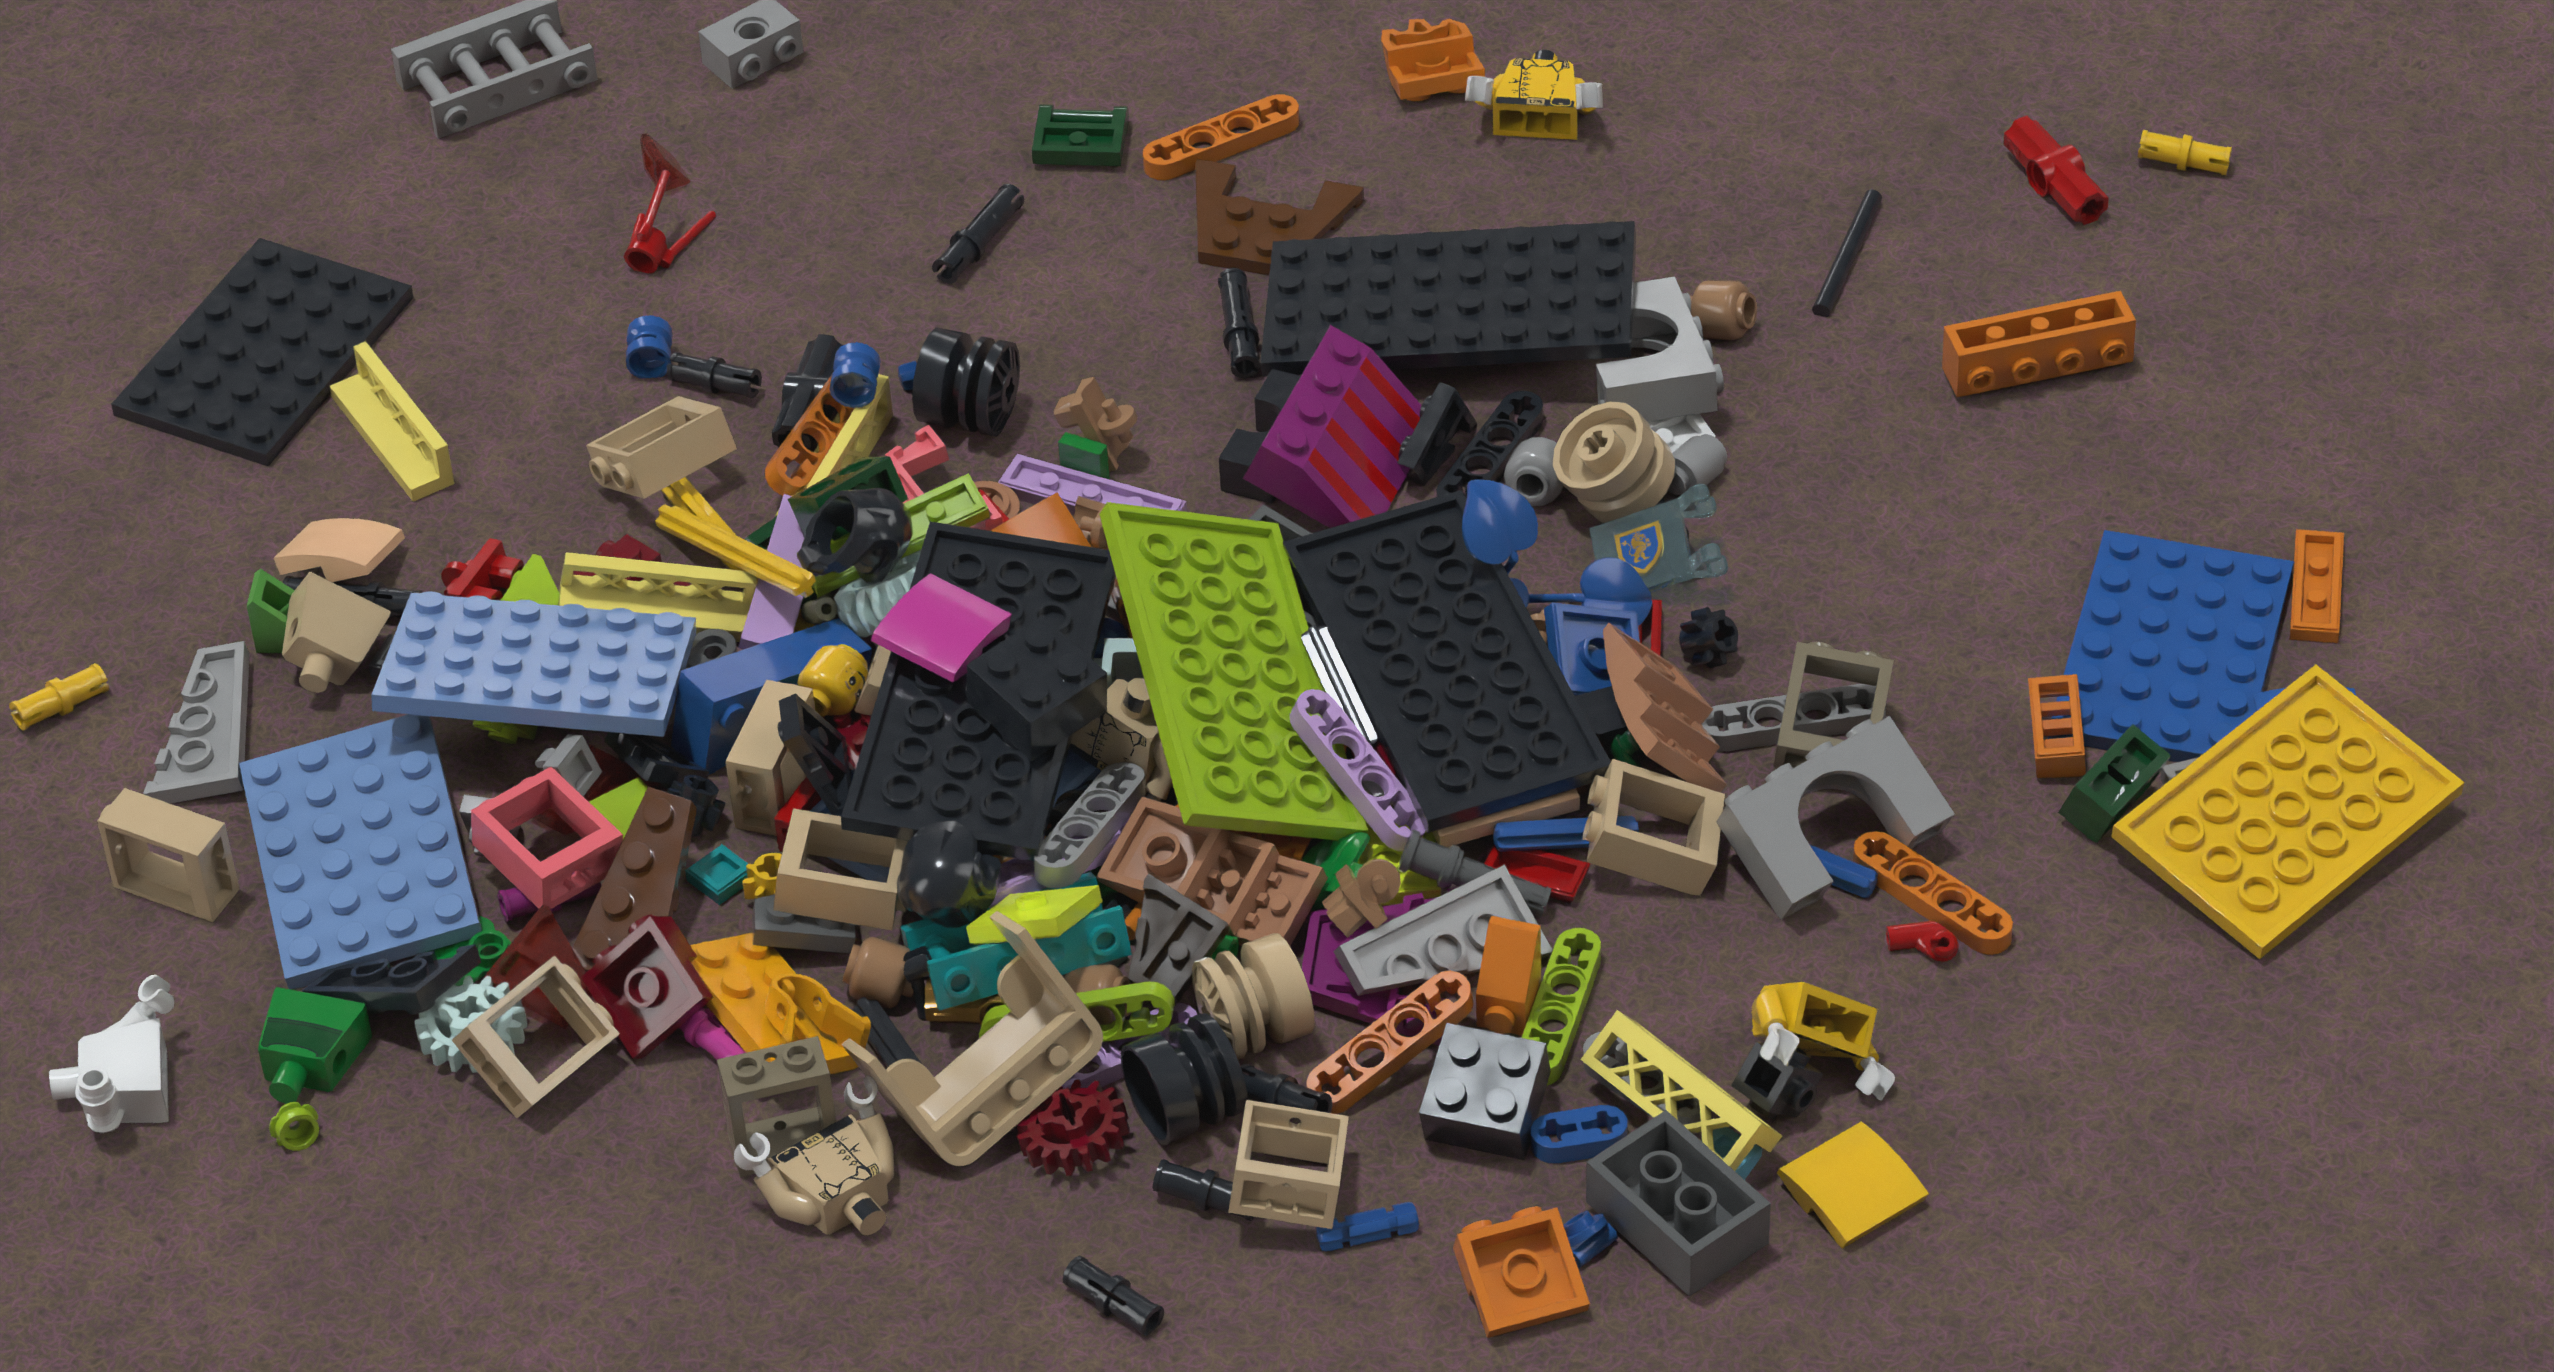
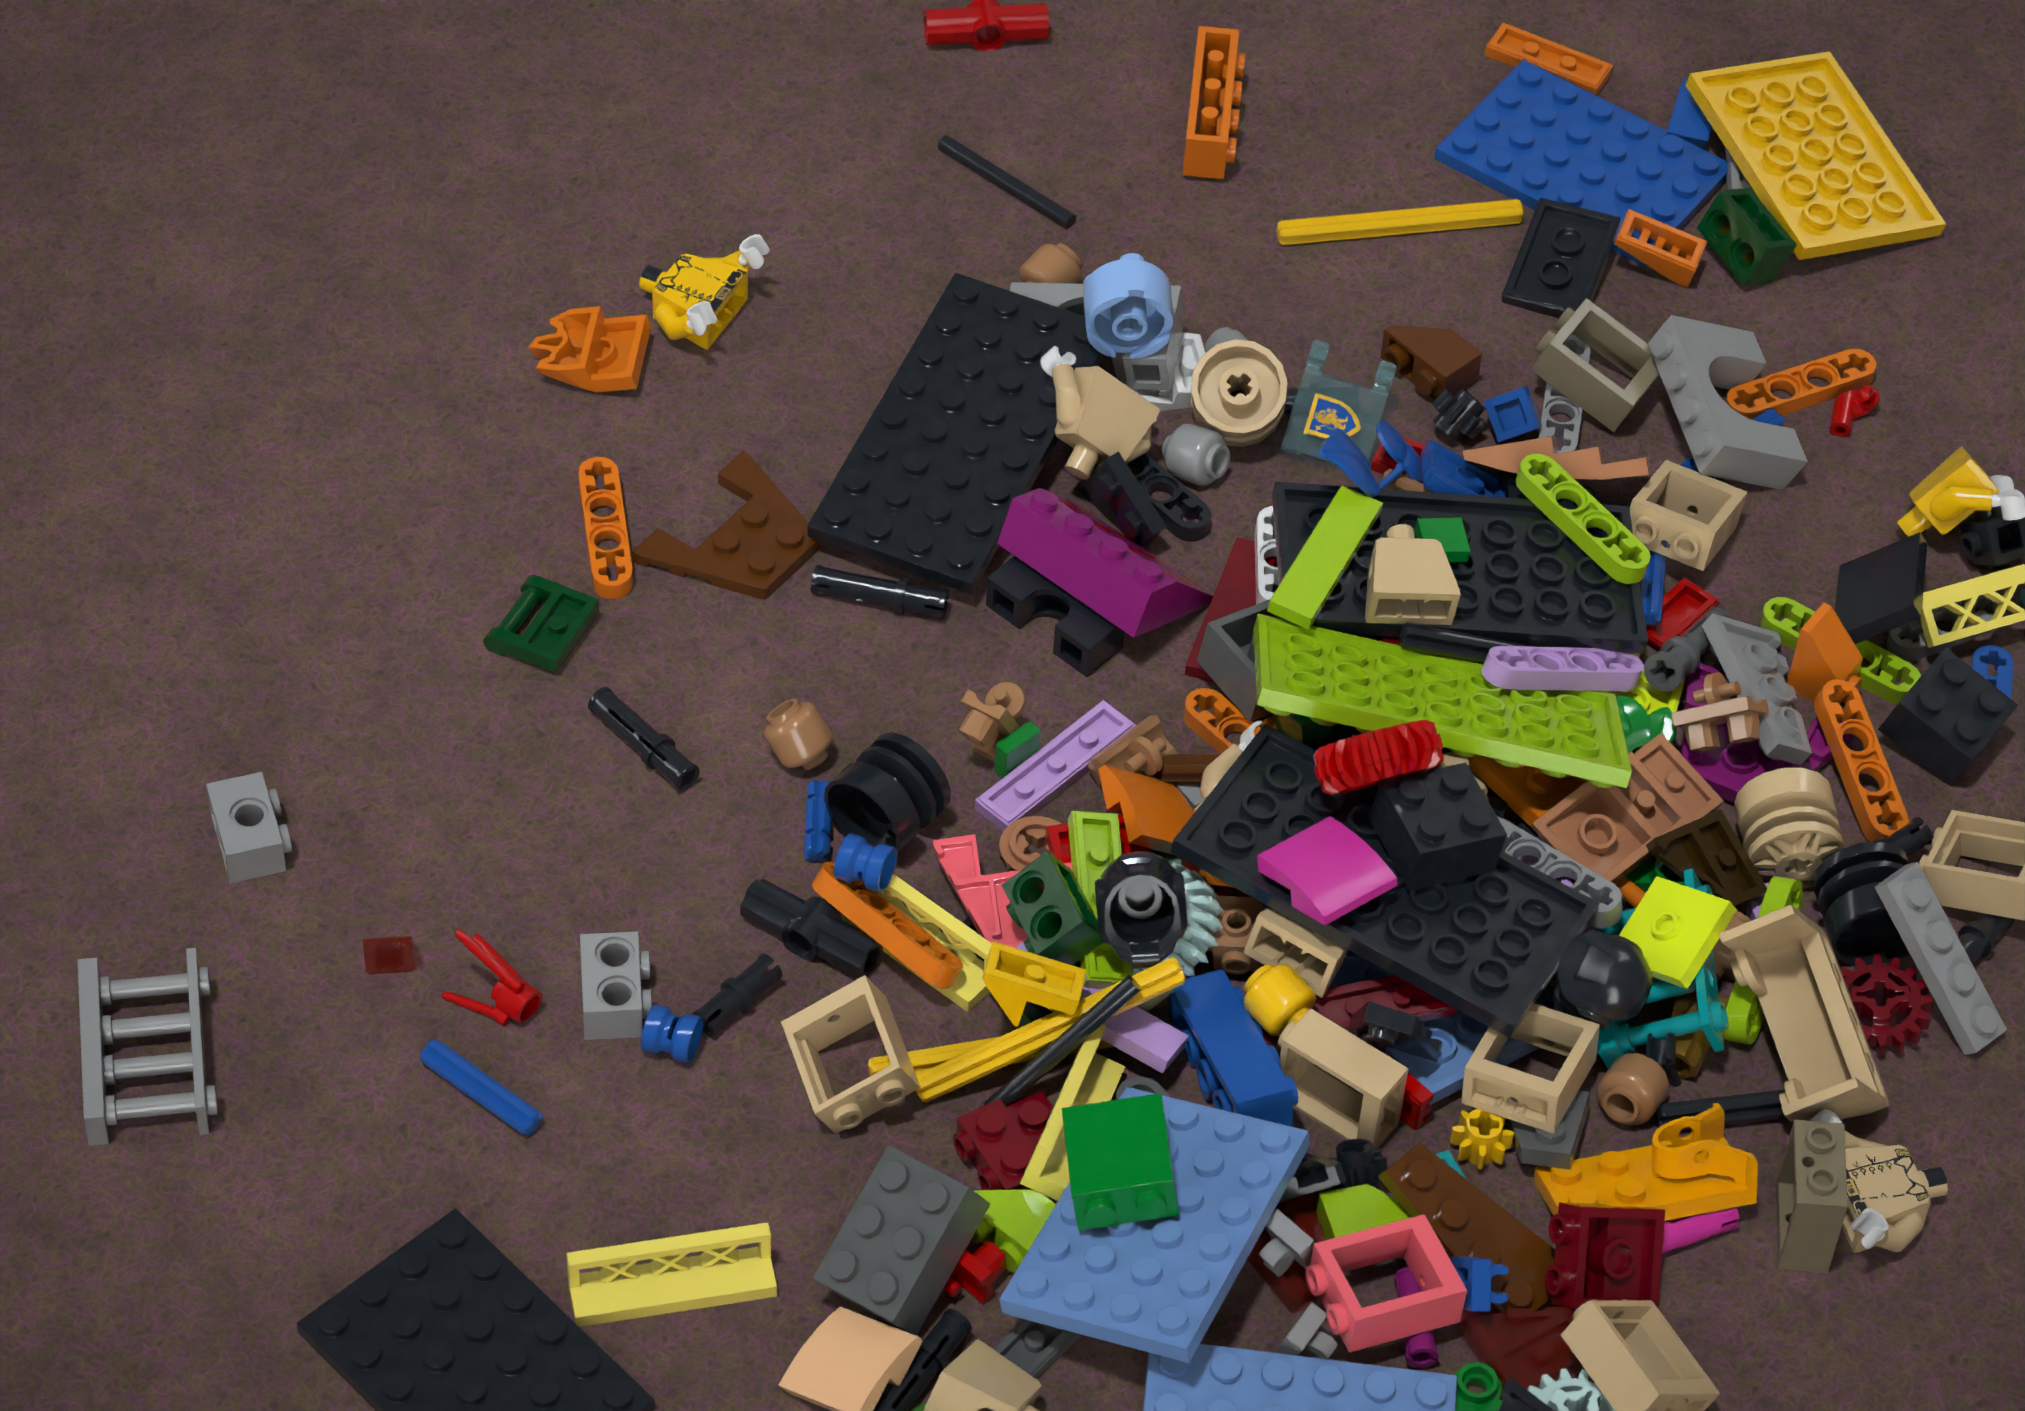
camera: 75 degrees left, 5 degrees up
(456, 523) = (901, 1240): none -> dark grey brick
(546, 263) = (481, 1087): none -> blue axle
(565, 605) = (1119, 1162): none -> green brick
(570, 896) = (1477, 1276): none -> blue tile
(686, 293) = (612, 977): none -> light grey brick
(728, 558) = (1067, 1042): none -> black bar
(755, 502) = (1022, 976): none -> yellow slope
(1021, 314) = (798, 734): none -> medium nougat head
(1075, 609) = (1378, 756): none -> red gear
(1122, 1134) = (1940, 958): none -> light grey plate
(1369, 603) = (1410, 581): none -> tan torso
(1371, 544) = (1324, 557): none -> lime tile
(1454, 625) = (1448, 532): none -> green tile
(1505, 371) = (1097, 414): none -> tan torso
(1562, 726) = (1618, 554): none -> lime beam
(1624, 323) = (1128, 307): none -> light blue brick
(1625, 993) = (1882, 588): none -> black tile
(1732, 674) = (1512, 414): none -> blue tile
(1776, 604) = (1431, 358): none -> reddish brown slope
(1980, 537) = (1399, 222): none -> yellow axle
(1990, 659) = (1560, 258): none -> black tile

